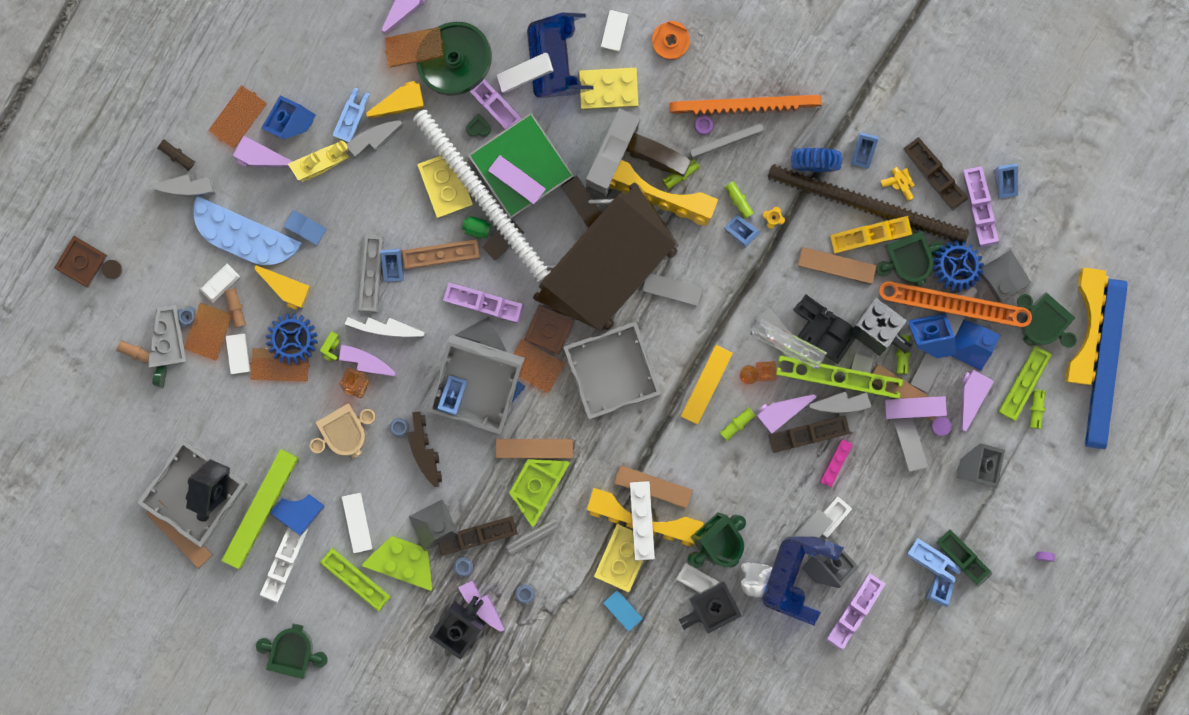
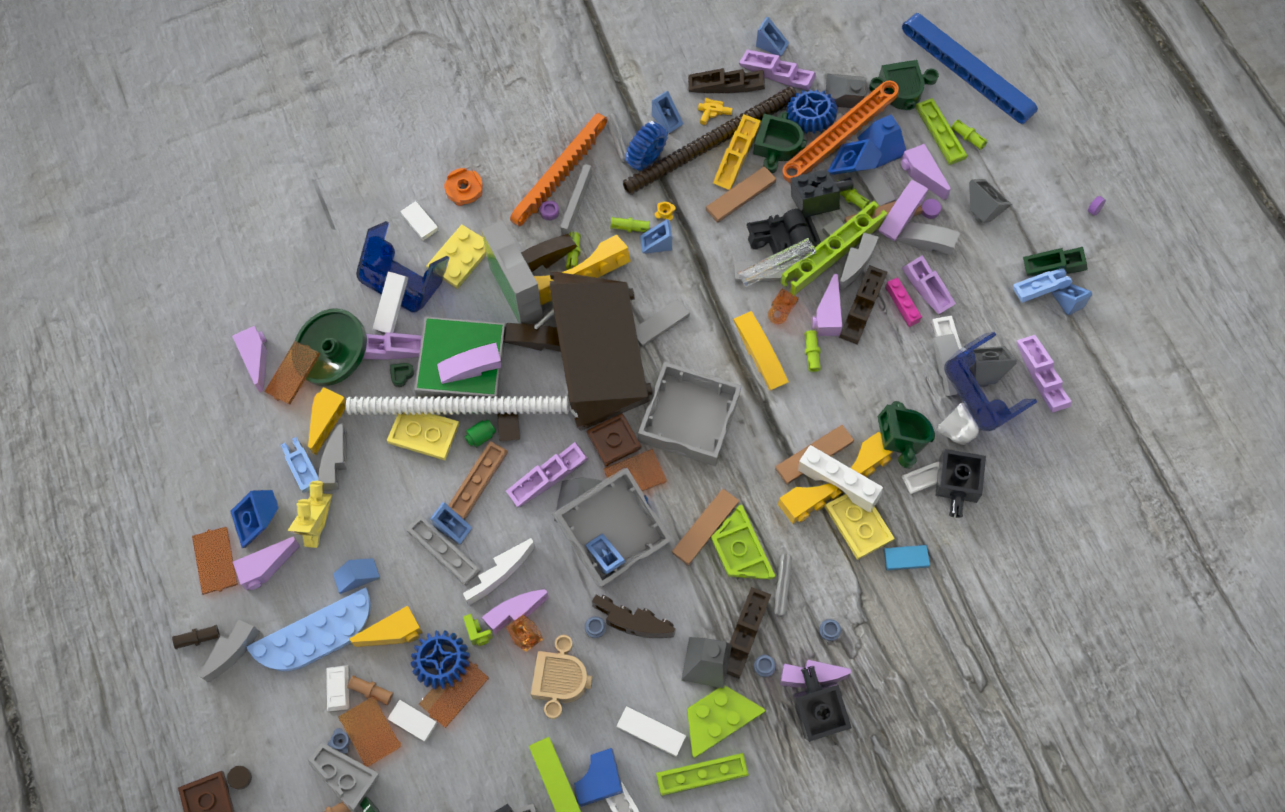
camera: 50 degrees left, 20 degrees down
(866, 472) = (928, 284): none -> lavender slope
(1091, 286) = (903, 40): yellow arch -> none

